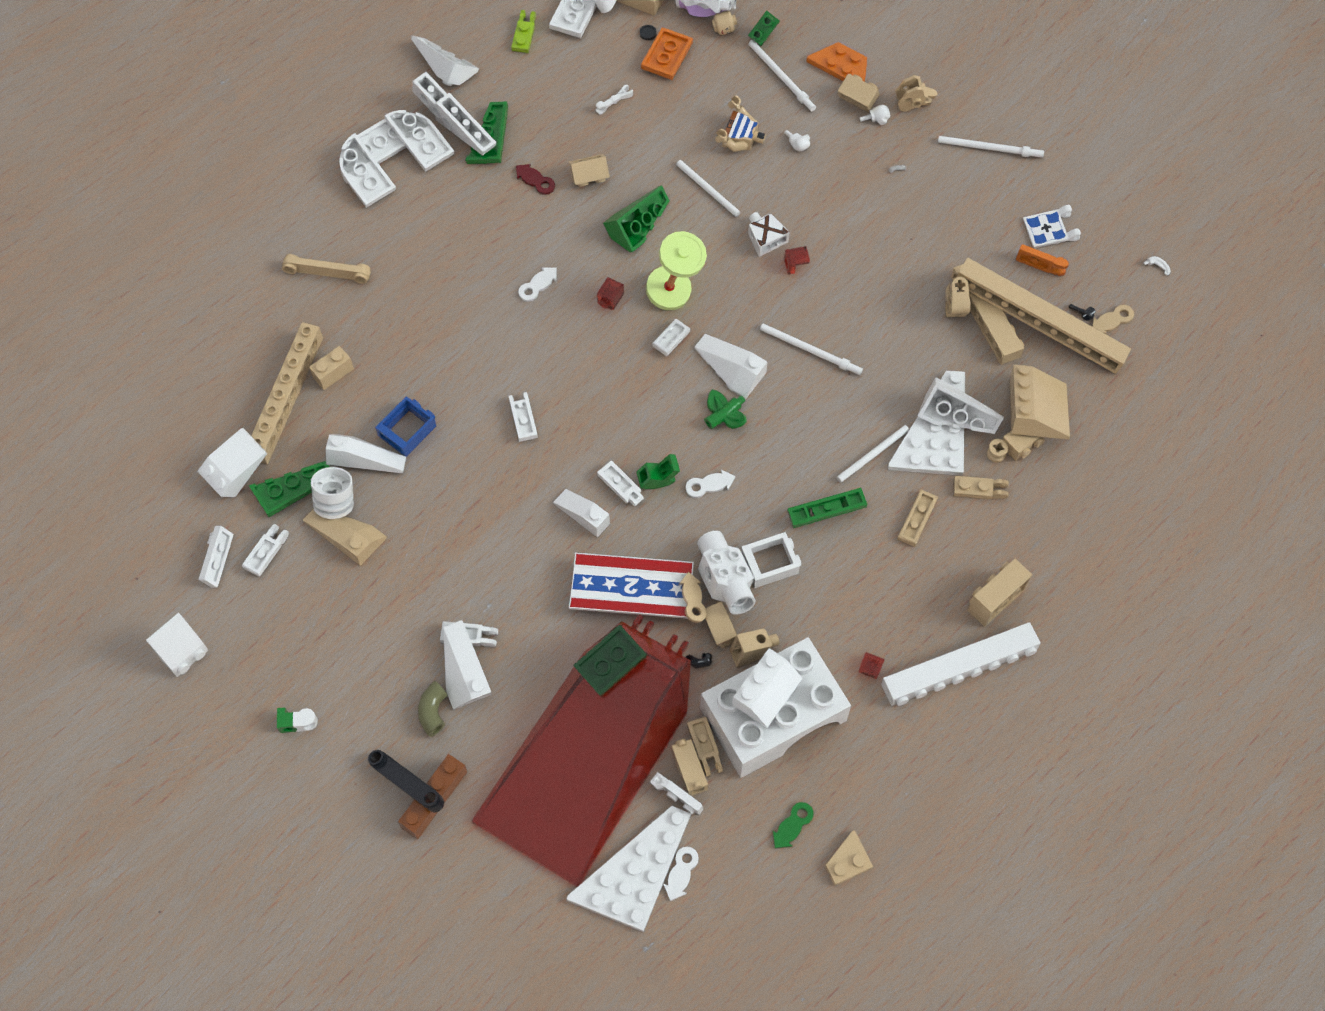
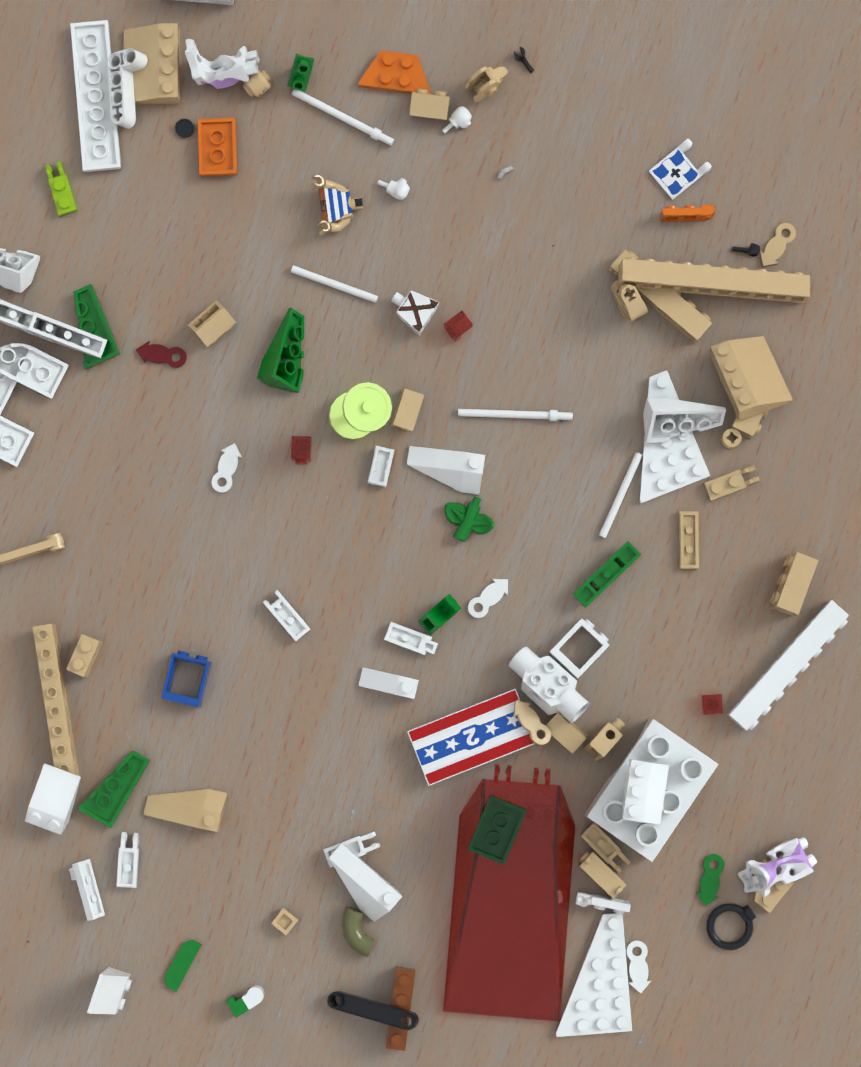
camera: 25 degrees left, 20 degrees up
(258, 662) = (181, 964): none -> green piece
(332, 492) = (151, 777): white wheel -> none
(357, 453) = (156, 727): white wedge -> none
(372, 668) = (284, 921): none -> tan plate
(622, 94) = (185, 240): white piece -> none
(700, 663) = (563, 775): black arm -> none
(717, 303) = (407, 410): none -> tan hinge
(811, 872) = (746, 914): none -> black piece
(879, 834) = (765, 874): none -> white hips
(954, 94) = (522, 58): none -> black hand
(1025, 151) = (619, 93): white bar -> none
(1160, 262) = (796, 159): white piece -> none

